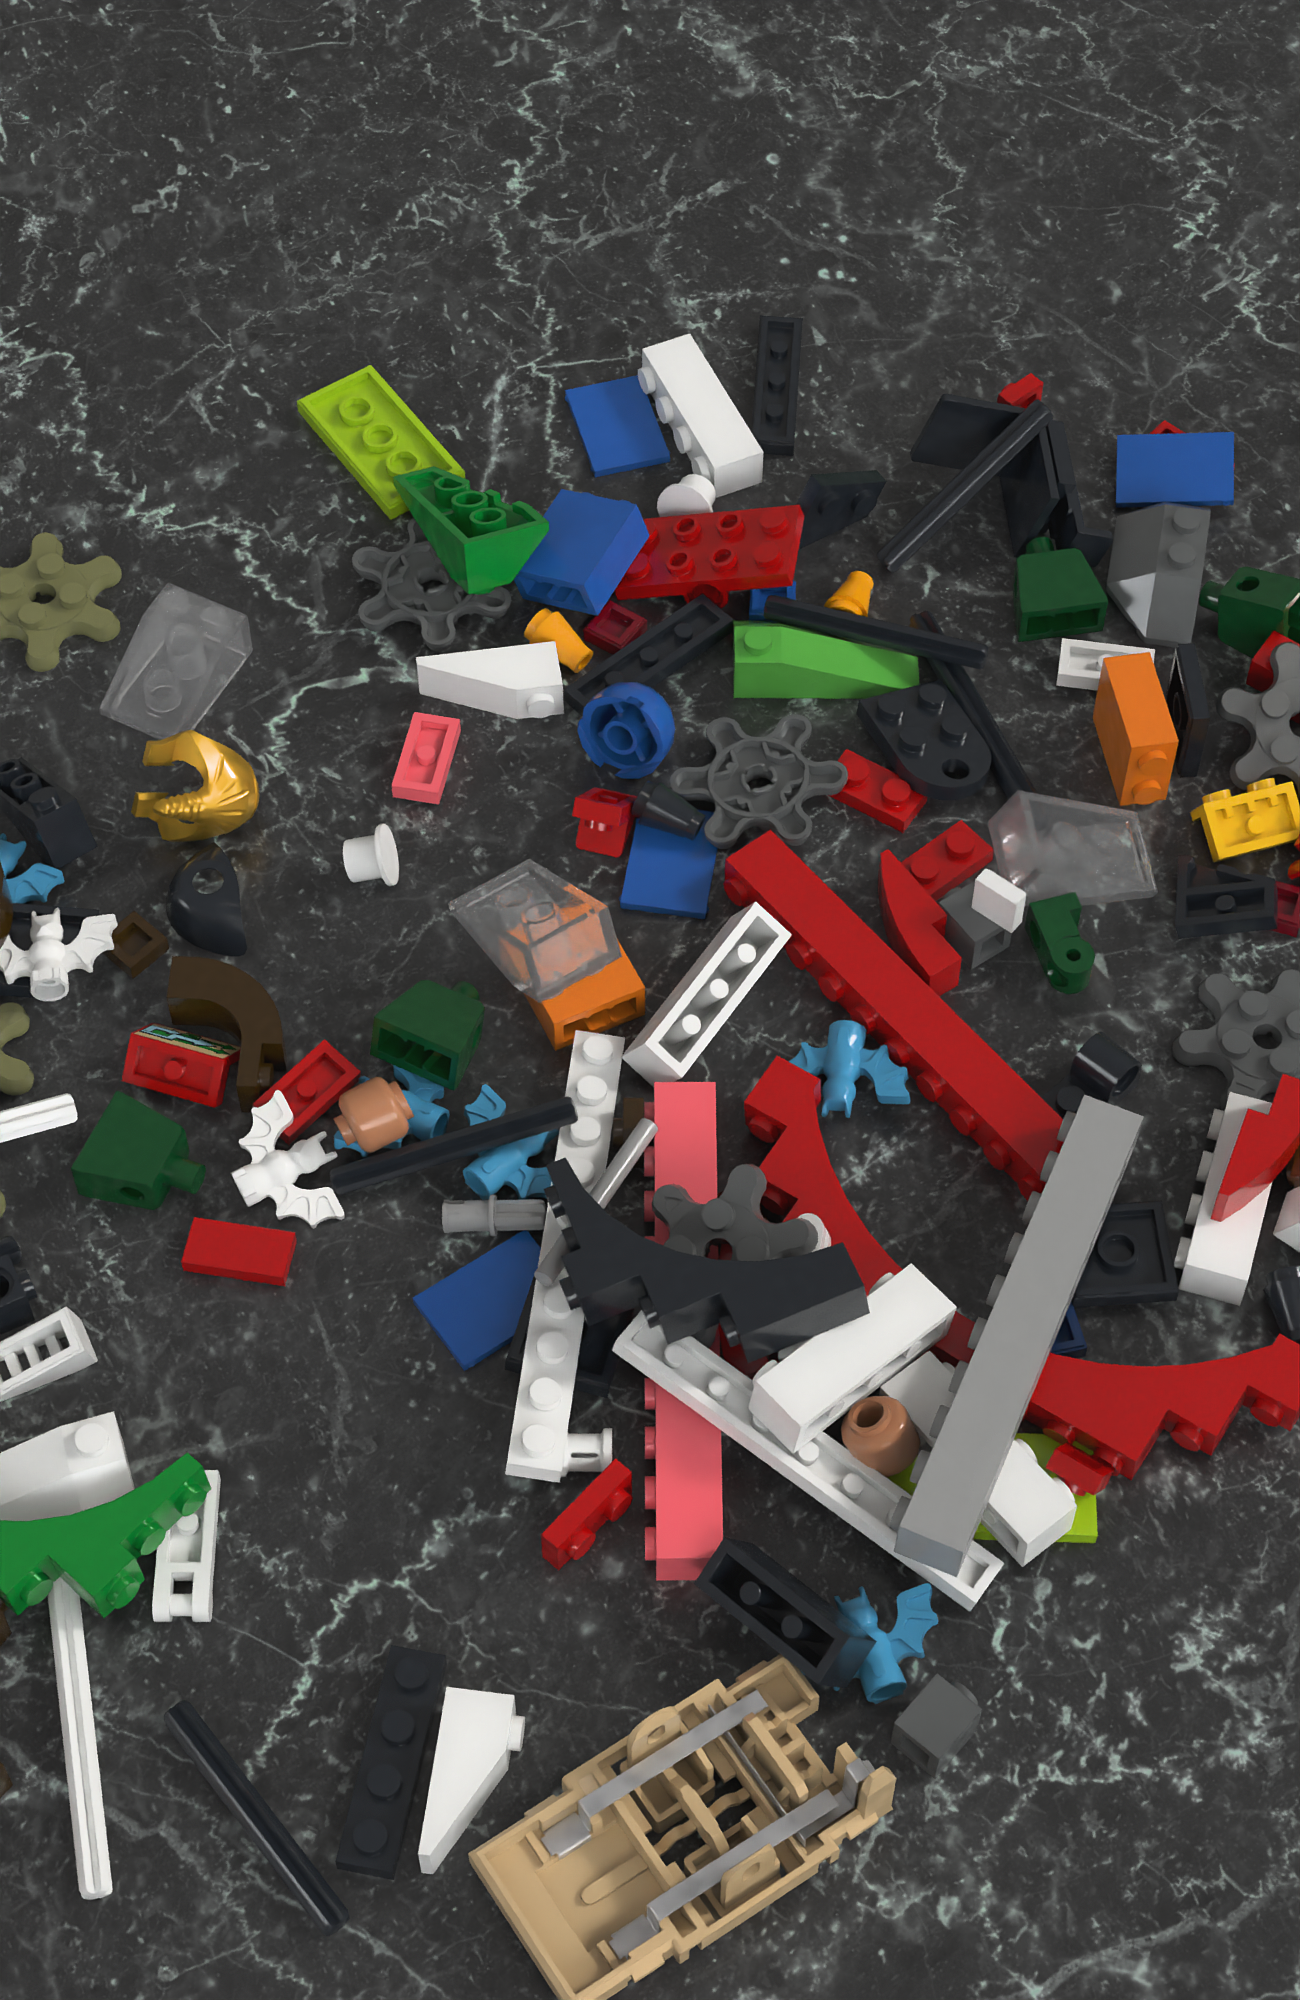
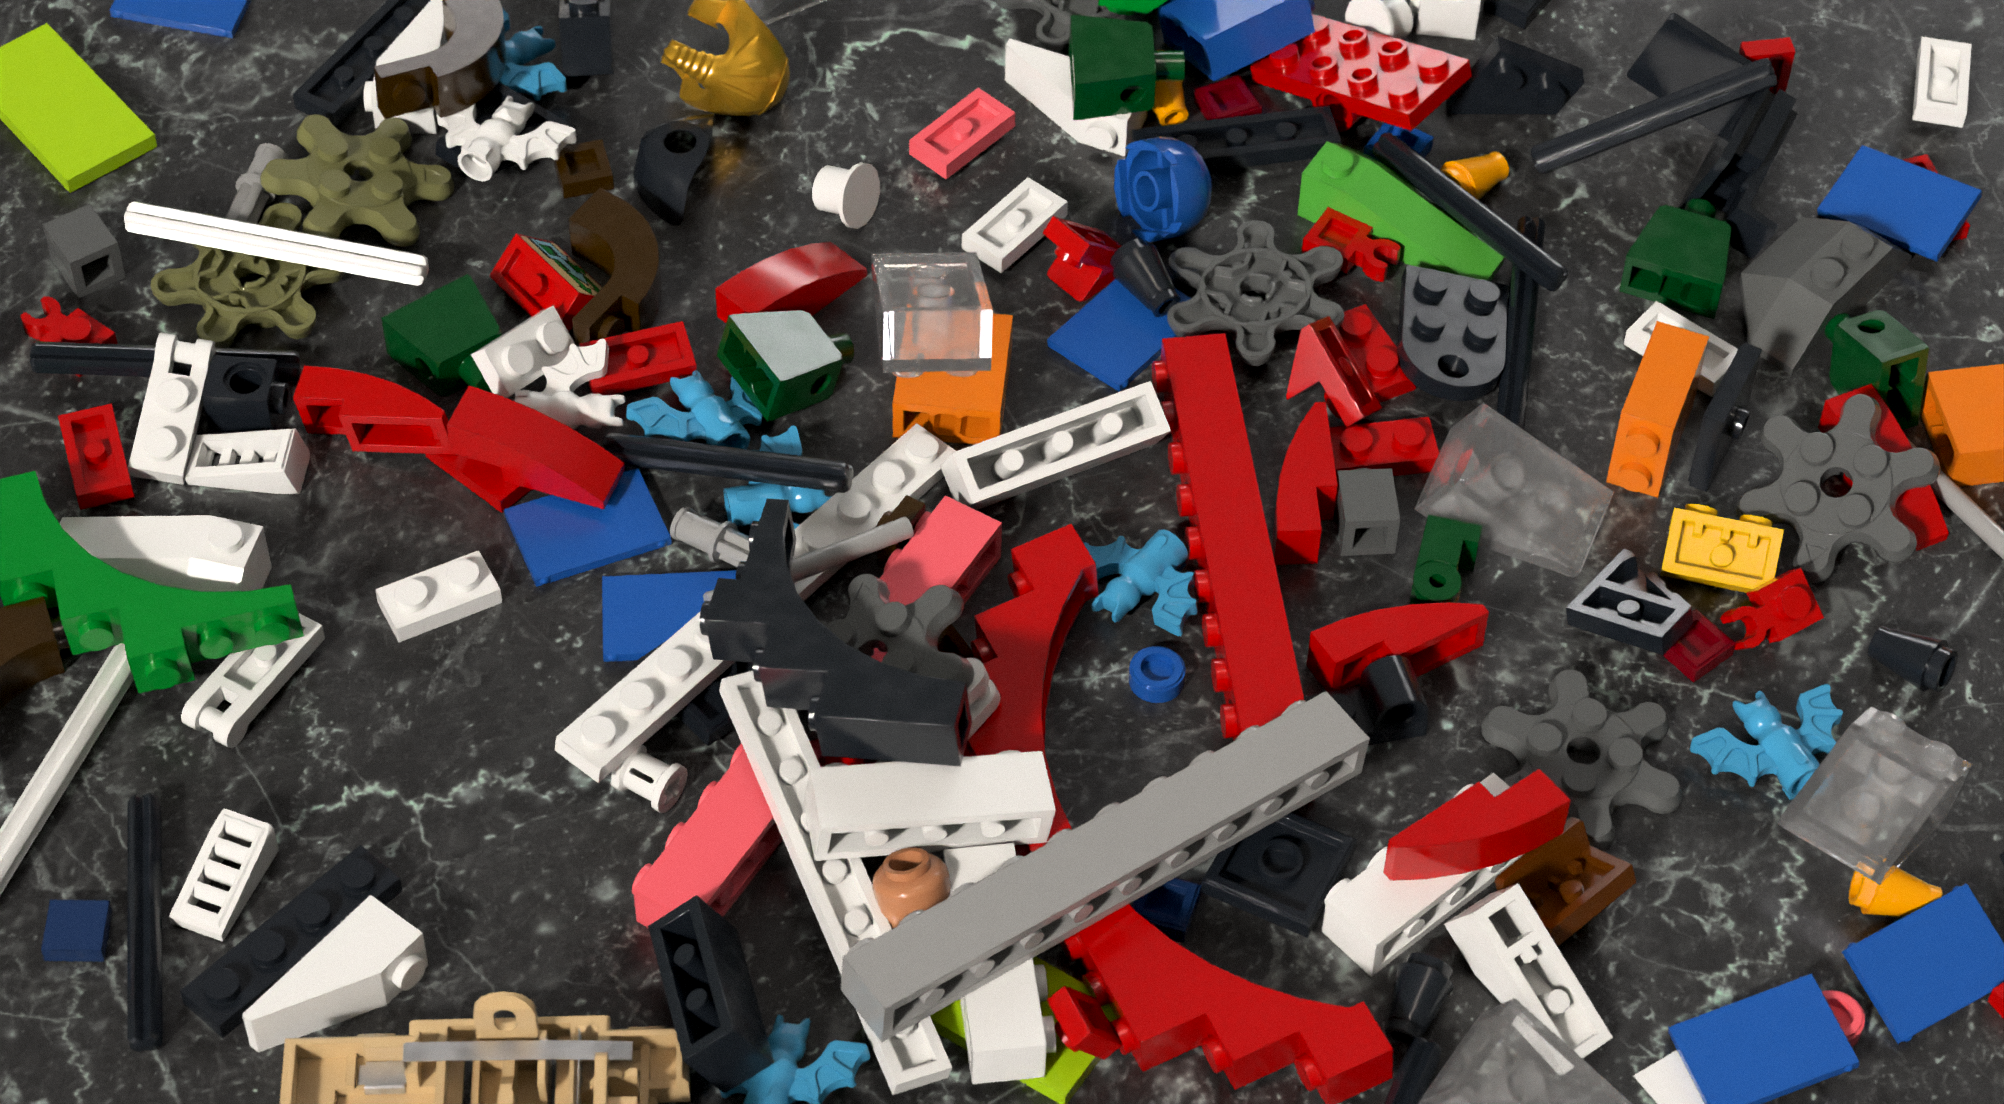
camera: 30 degrees right, 5 degrees down
(121, 1256) = (370, 412): none -> red slope
(203, 1859) = (77, 930): none -> dark blue tile
(213, 1136) = (521, 353): none -> white plate
(288, 1218) = (532, 448): none -> red slope
(288, 1389) = (438, 596): none -> white plate
(289, 1691) = (236, 840): none -> white slope
(365, 1260) = (572, 537): none -> blue piece
(373, 1114) = (669, 397): nougat head -> none
(384, 963) = (790, 281): none -> red slope
(526, 817) = (1013, 224): none -> white plate
(528, 642) = (1116, 66): none -> dark green torso
(576, 1526) = (609, 828): red plate -> none
(794, 697) = (1354, 243): none -> red plate
(866, 816) = (1327, 360): none -> red slope
(909, 1144) = (1157, 674): none -> blue tile
(998, 900) = (1388, 490): white tile -> none
(1070, 1023) = (1421, 632): none -> red slope
(1134, 355) = (1942, 82): none -> white plate

